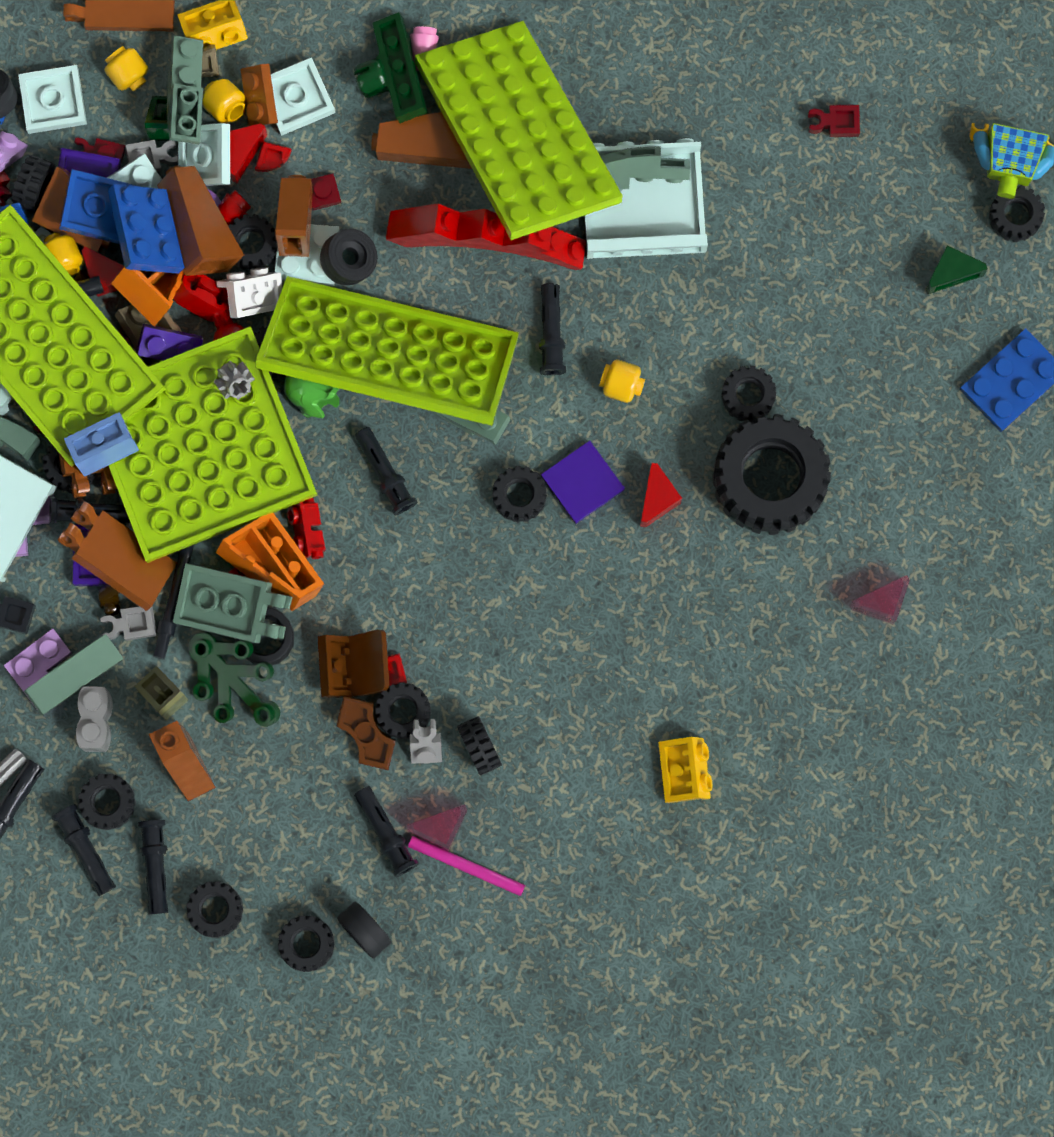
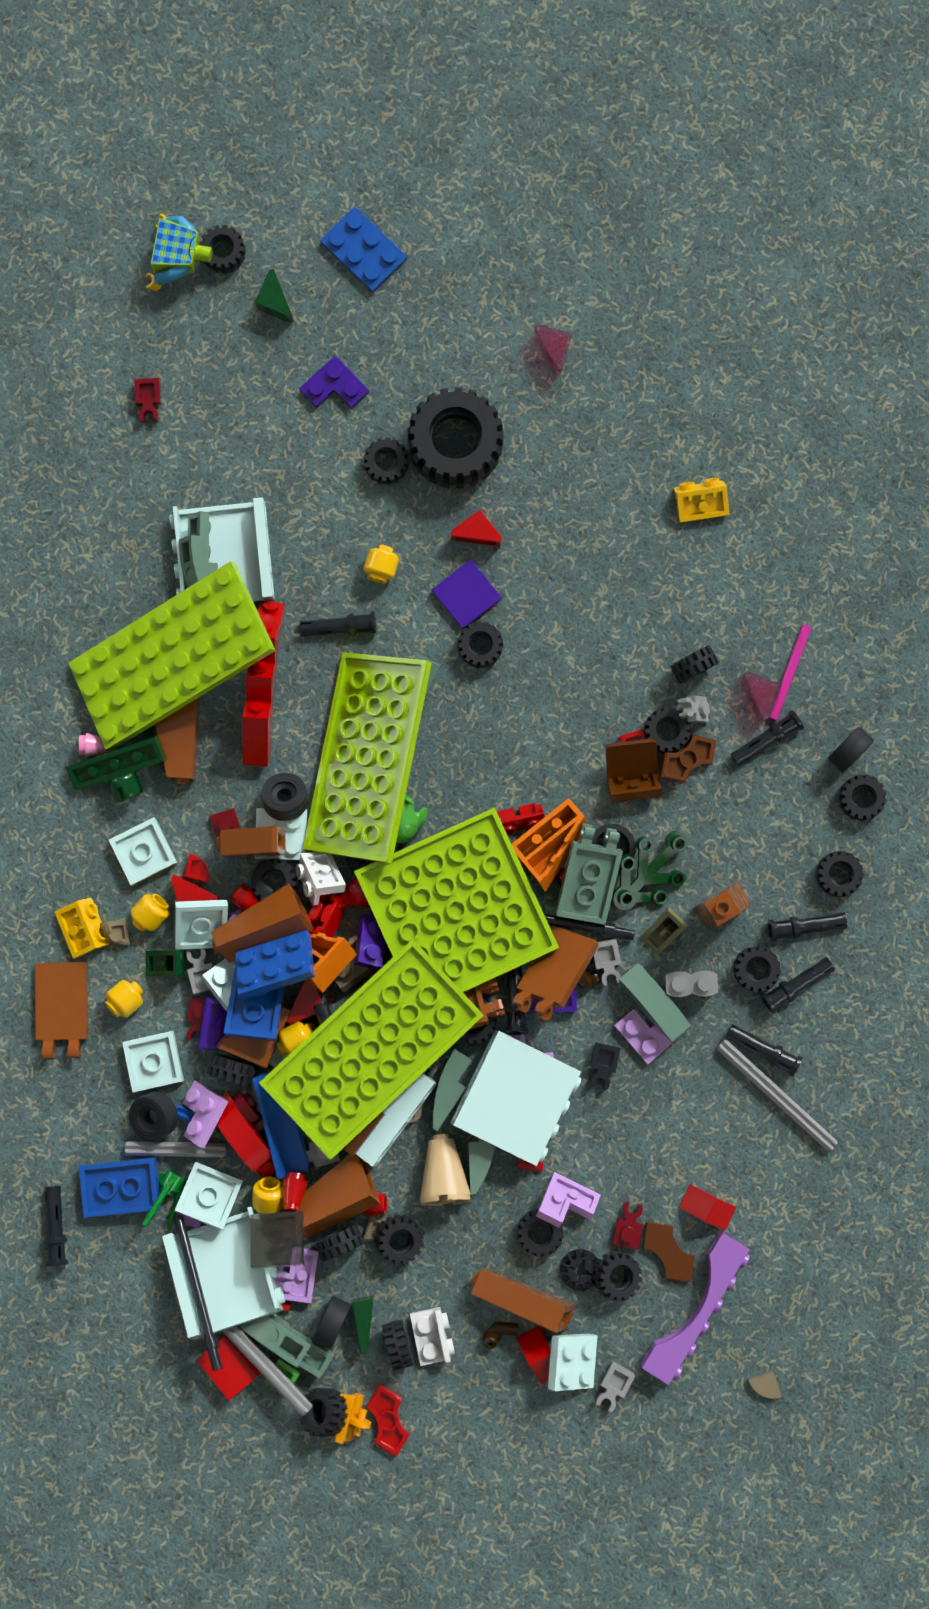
camera: 90 degrees left, 5 degrees up
(101, 444) = (464, 989): medium blue panel -> none
(185, 90) = (147, 944): sand green slope -> none
(234, 380) = (404, 880): light grey gear -> none
(259, 95) = (145, 882): dark orange plate -> none
(386, 474) = (467, 756): black pin -> none
(853, 340) = (334, 378): none -> dark purple plate

